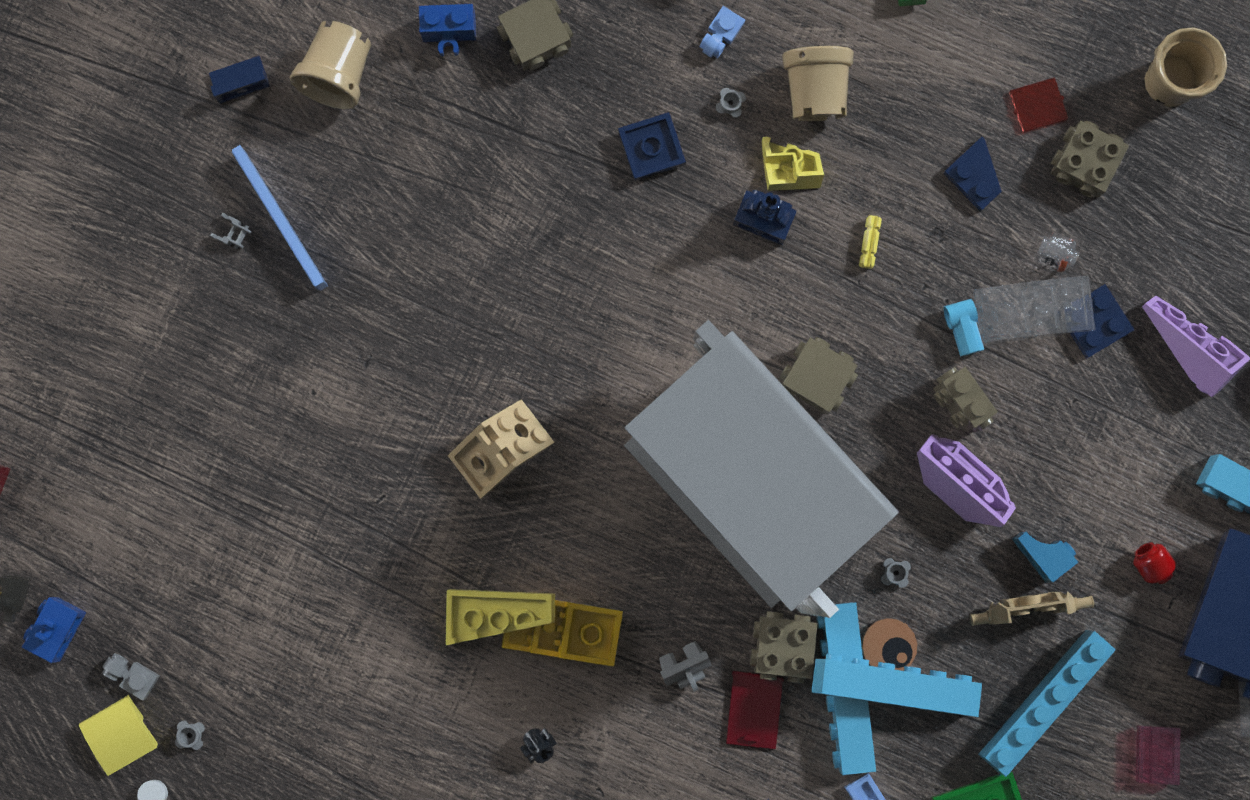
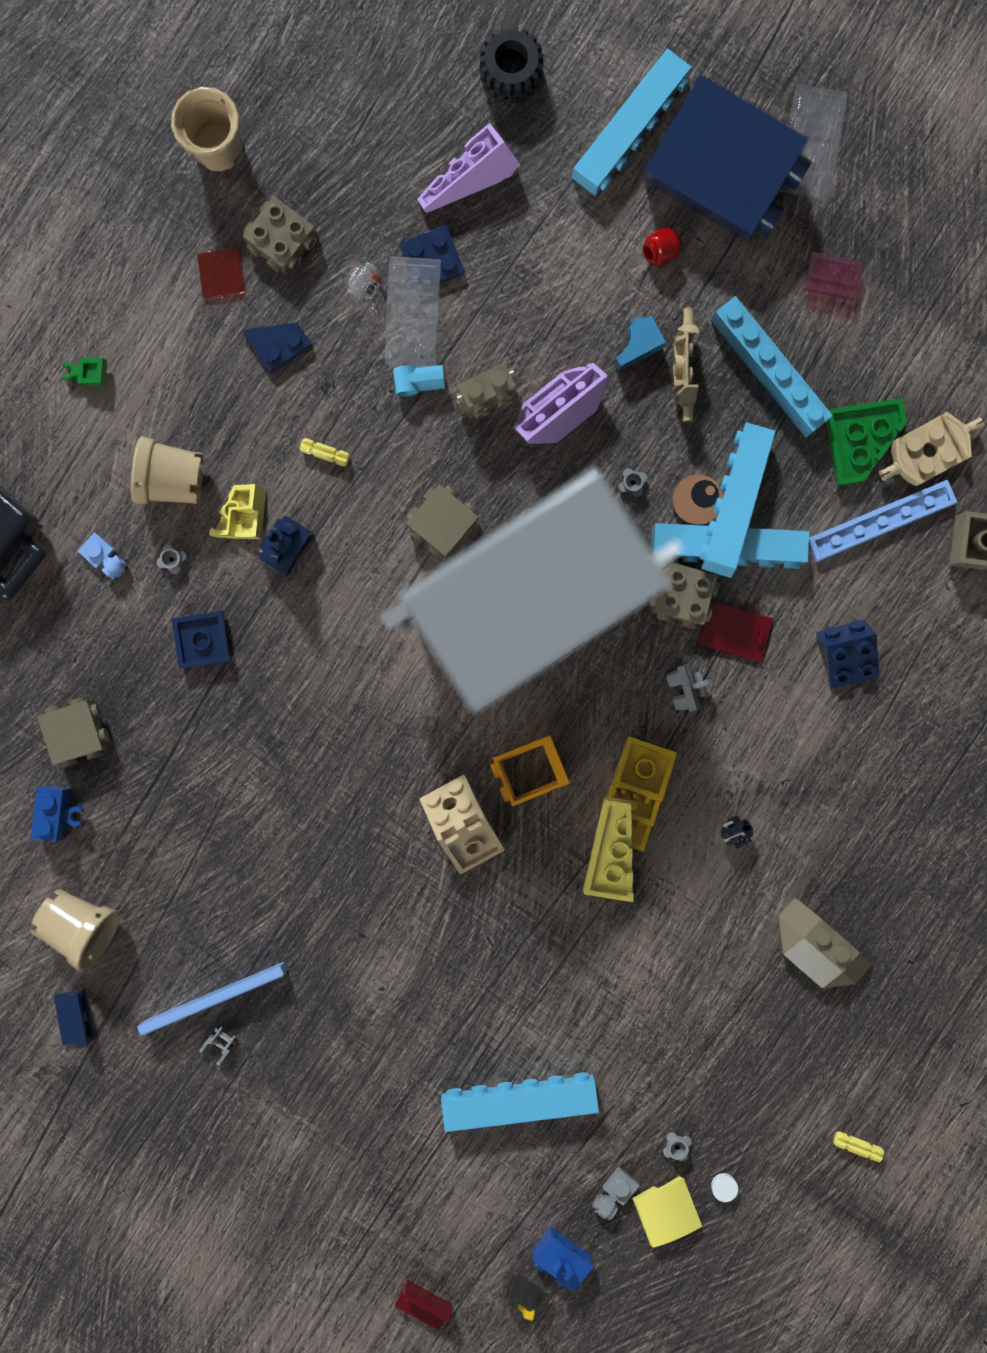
camera: 80 degrees left, 5 degrees up
(214, 556) = (519, 1102): none -> medium azure brick
(586, 534) = (554, 760): none -> light orange window

